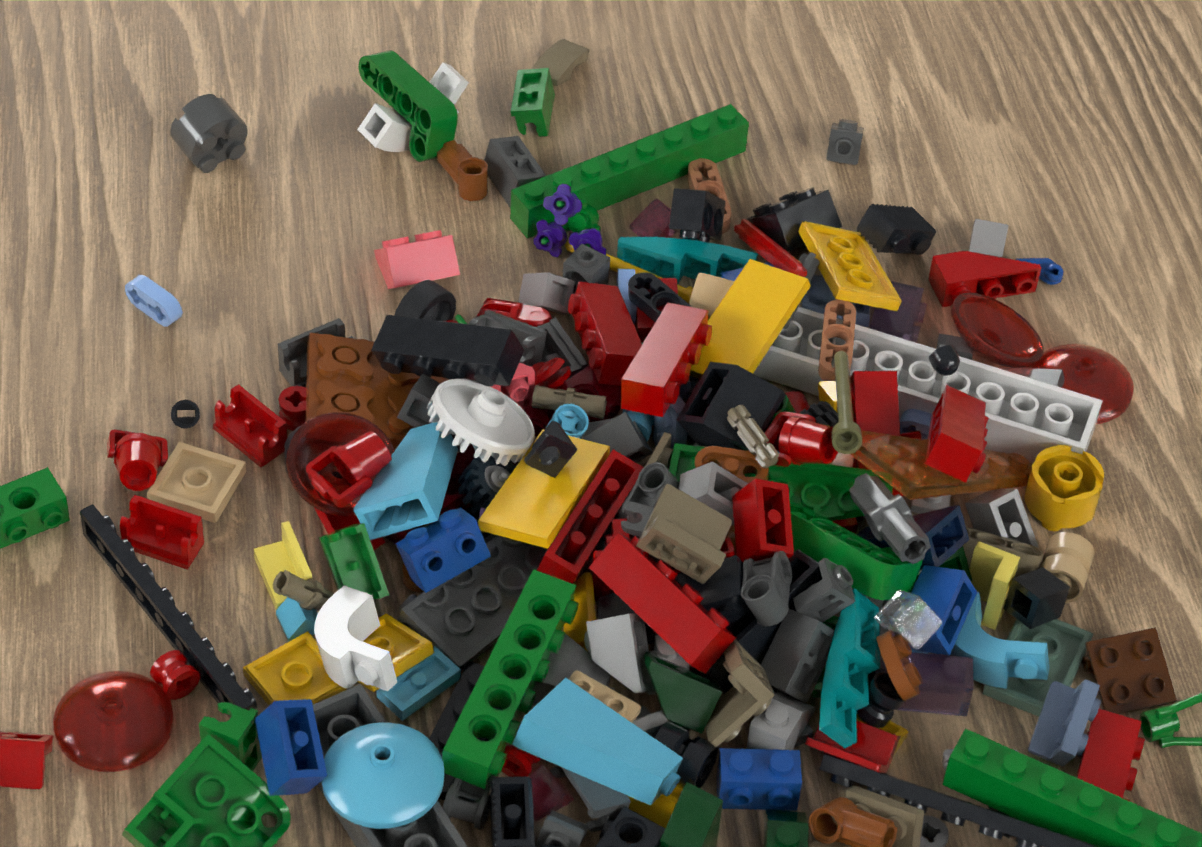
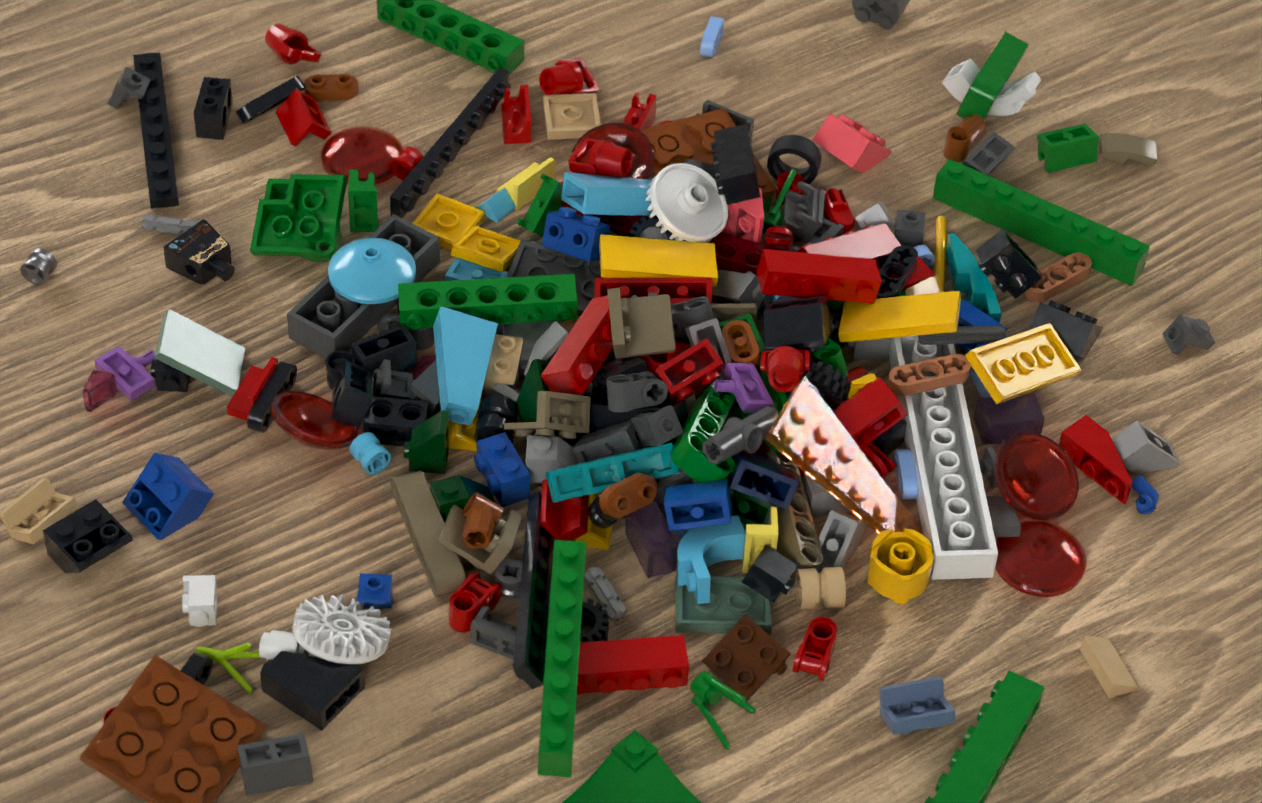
camera: 65 degrees right, 0 degrees up
(185, 421) = (621, 93): black hinge -> none
(290, 747) = (359, 215): blue brick -> none
(307, 592) = (496, 177): dark tan pin -> none
(340, 632) = (475, 219): white arch -> none
(552, 399) = (754, 245): dark tan pin -> none
(552, 449) = (679, 246): black bracket -> none
(572, 420) = (733, 253): medium azure wheel -> none
(580, 219) = (965, 213): dark purple plant -> none
(752, 436) = (766, 337): dark tan axle -> none
(769, 248) = (998, 314): red axle -> none
(810, 488) = (746, 386): none -> medium lavender plate
(846, 433) = (791, 378): olive piece -> none
(896, 229) = (1098, 386): black brick -> none
(909, 617) = (662, 482): clear bracket -> none
(945, 360) = (956, 441): black hinge -> none
(957, 434) = (867, 457): red brick -> none
(1062, 722) = (663, 622): sand blue bracket -> none
(1143, 605) = (815, 652): none -> red piece

